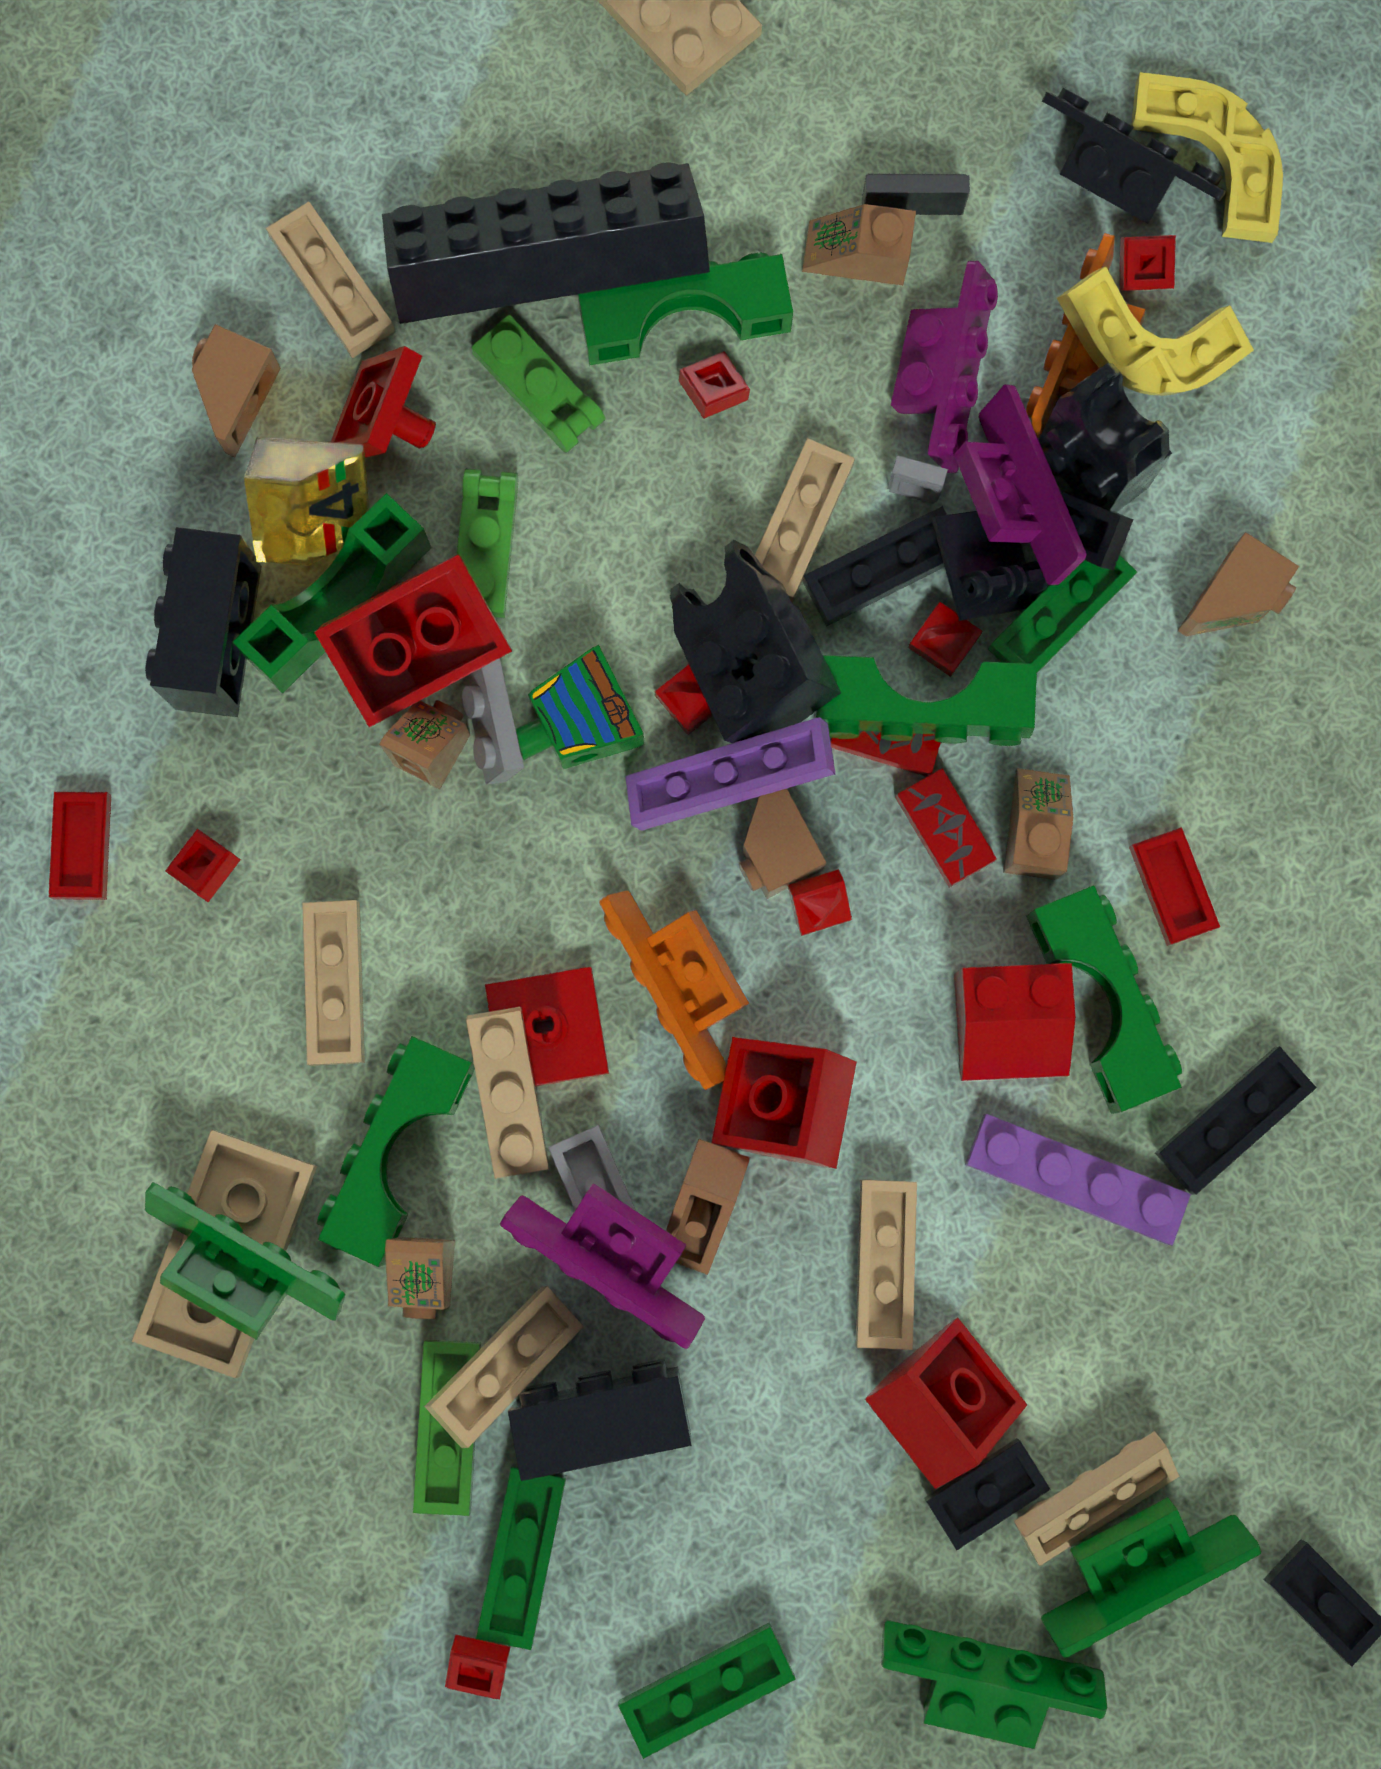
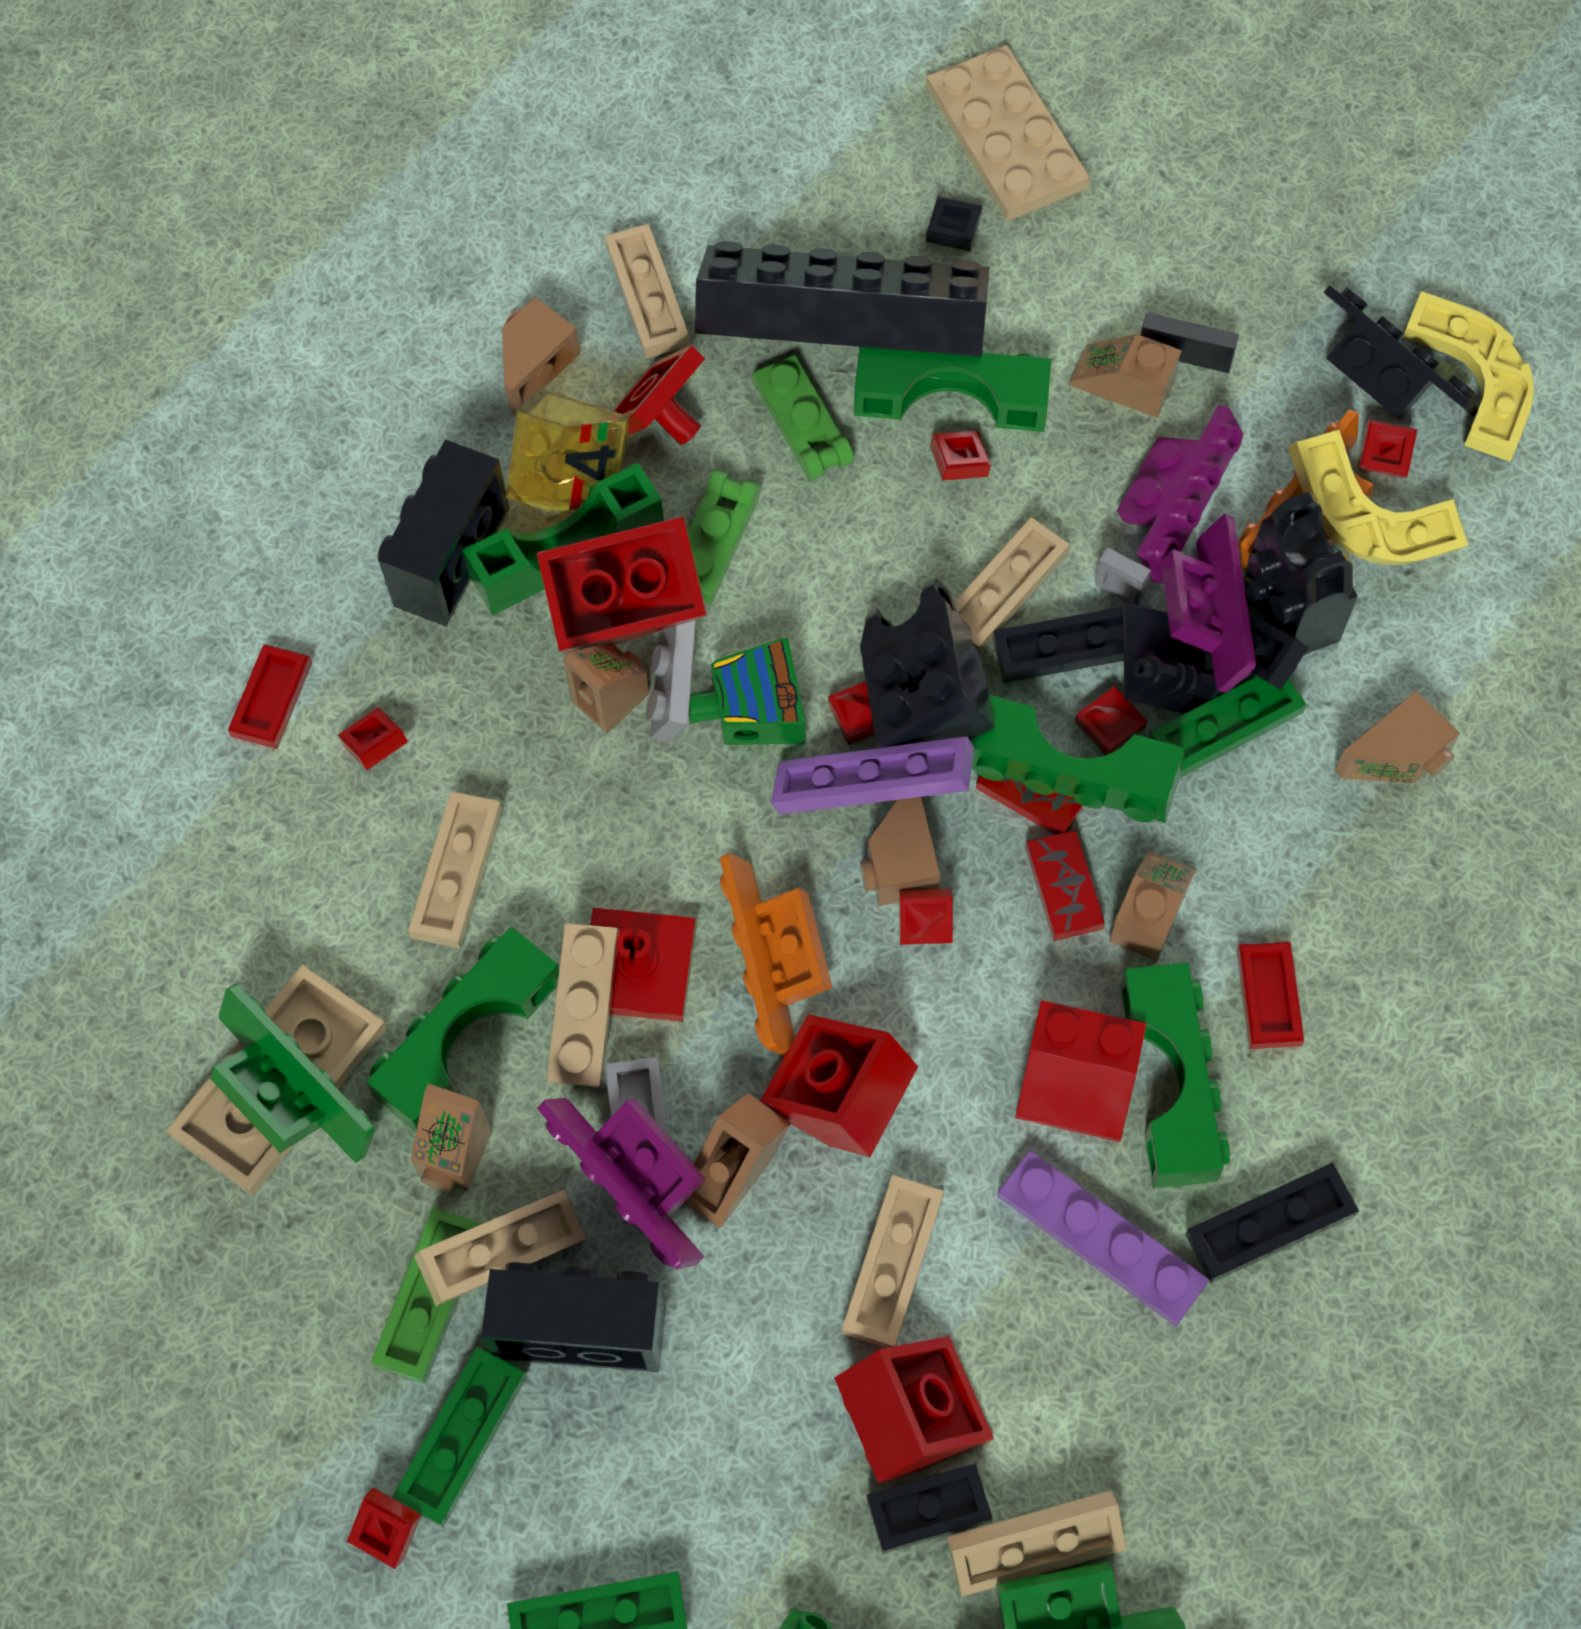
camera: 20 degrees right, 15 degrees down
(632, 114) = (954, 223): none -> black tile

